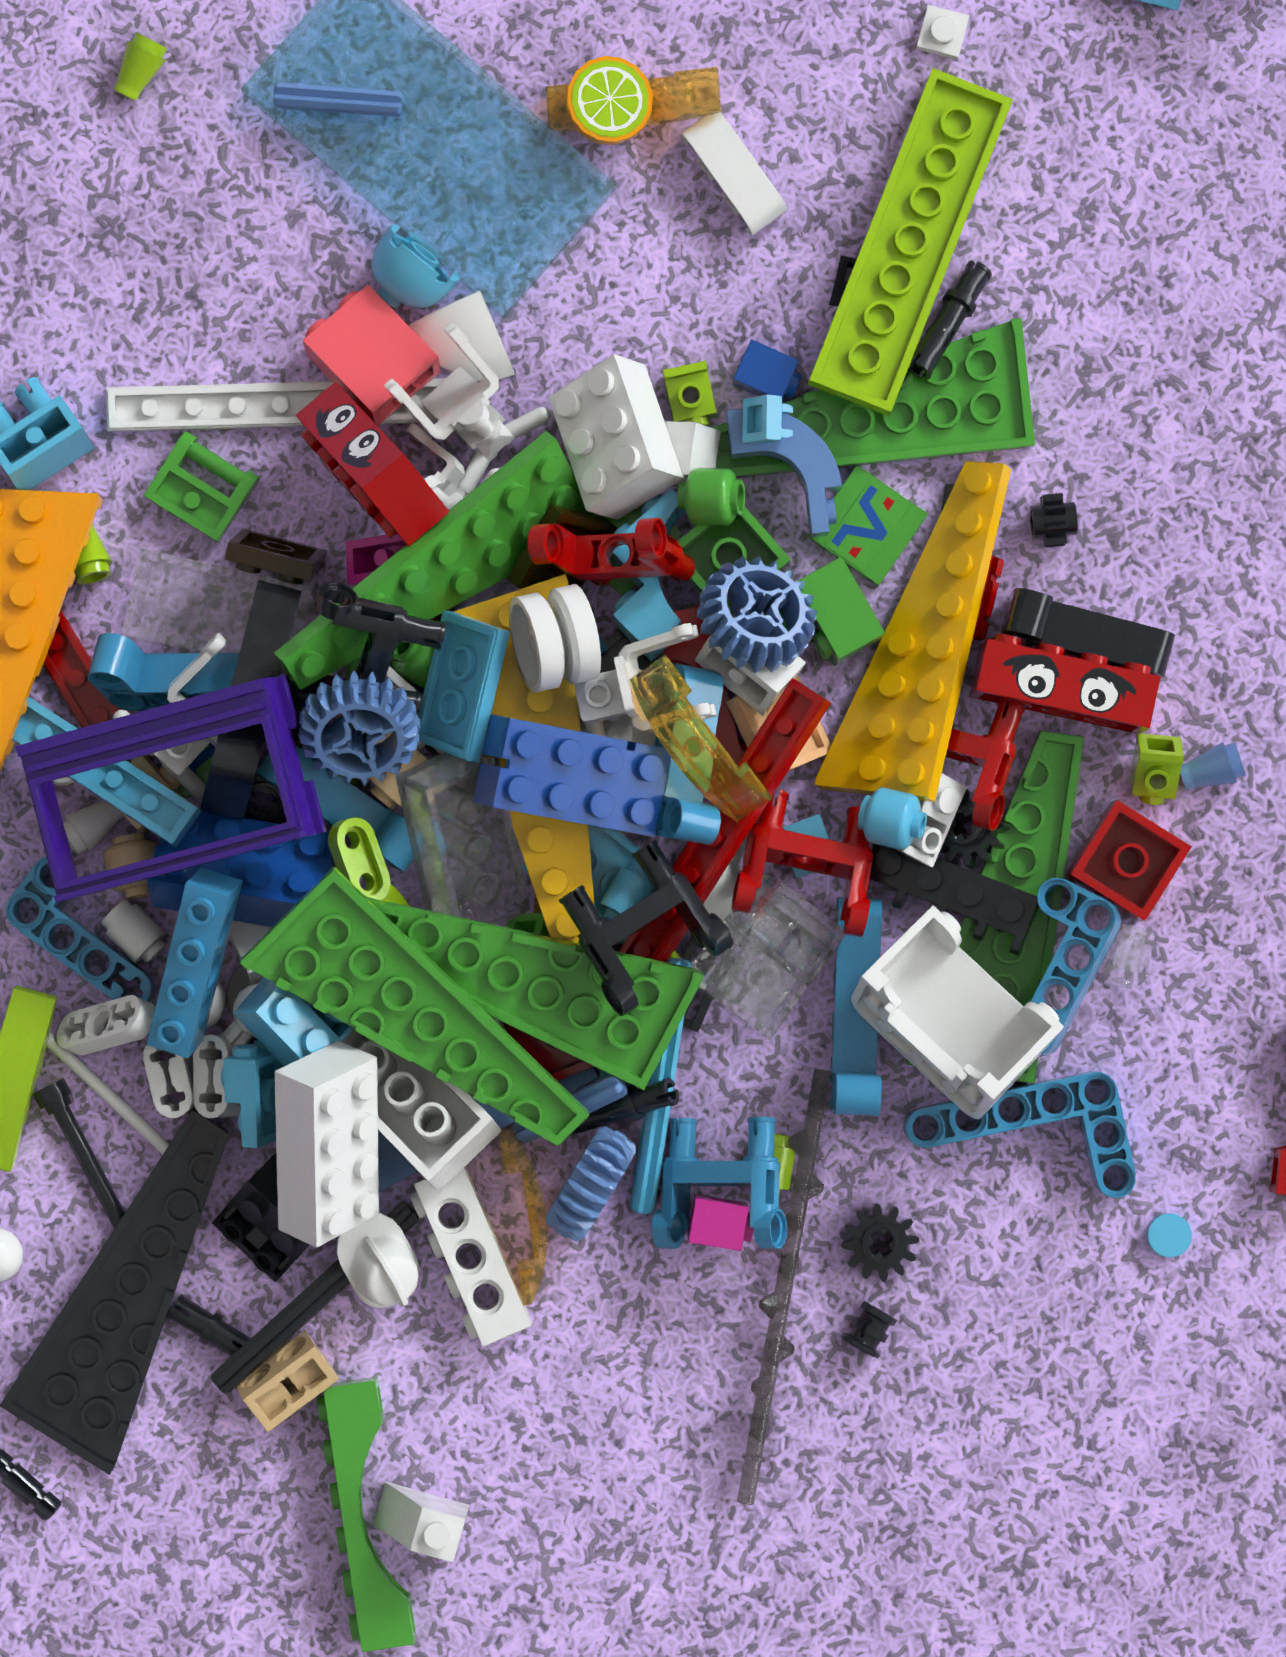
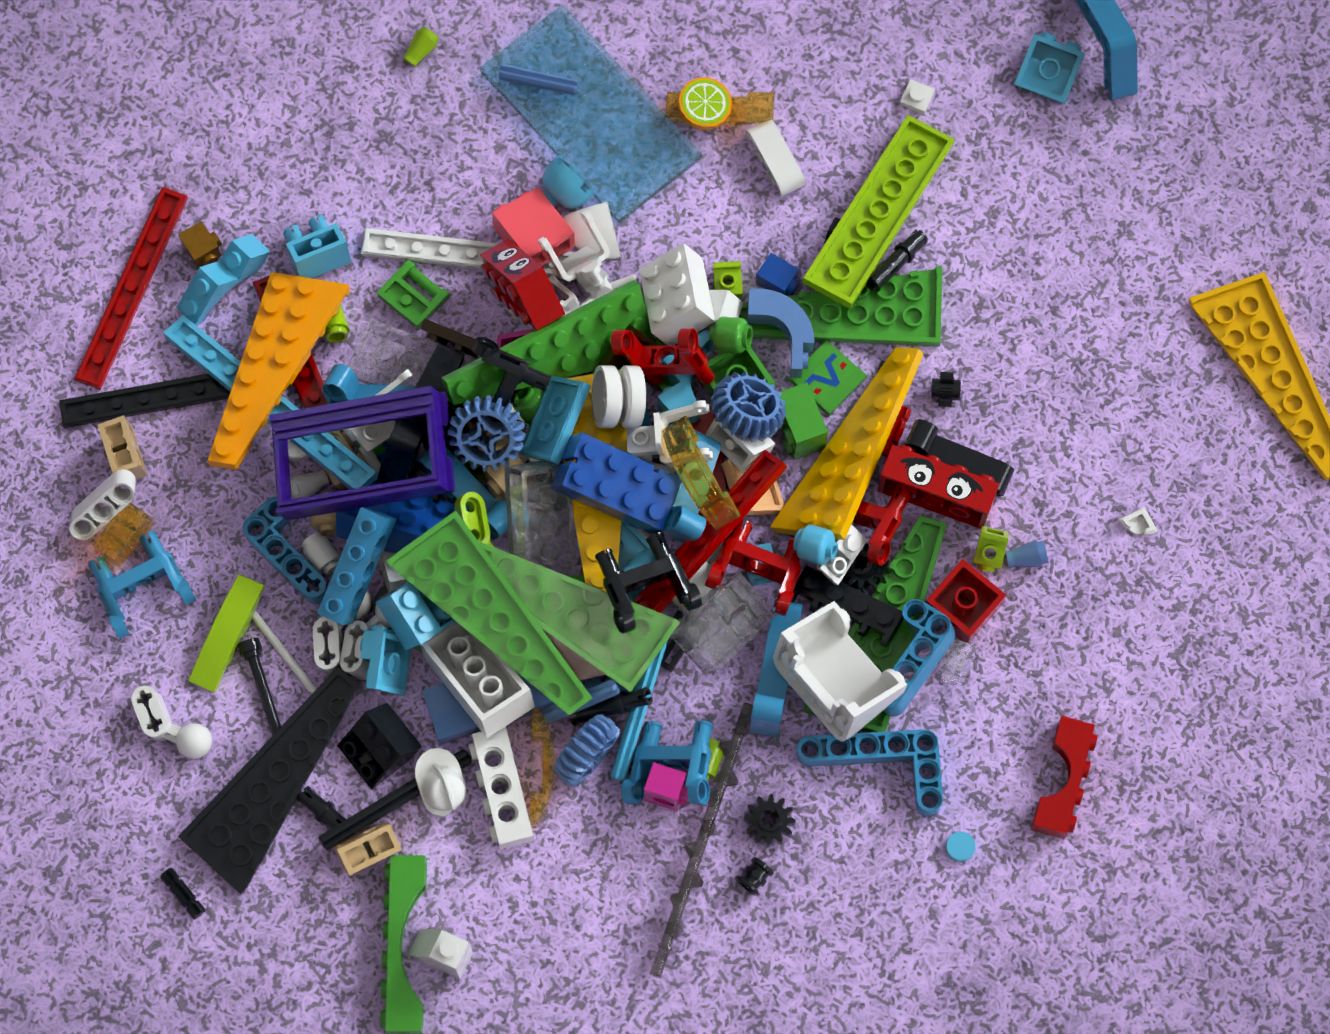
camera: 15 degrees right, 15 degrees down
(94, 1018) = (292, 604): white beam -> none
(327, 1143) = (421, 689): white brick -> none
(763, 419) = (770, 293): medium azure tile -> none

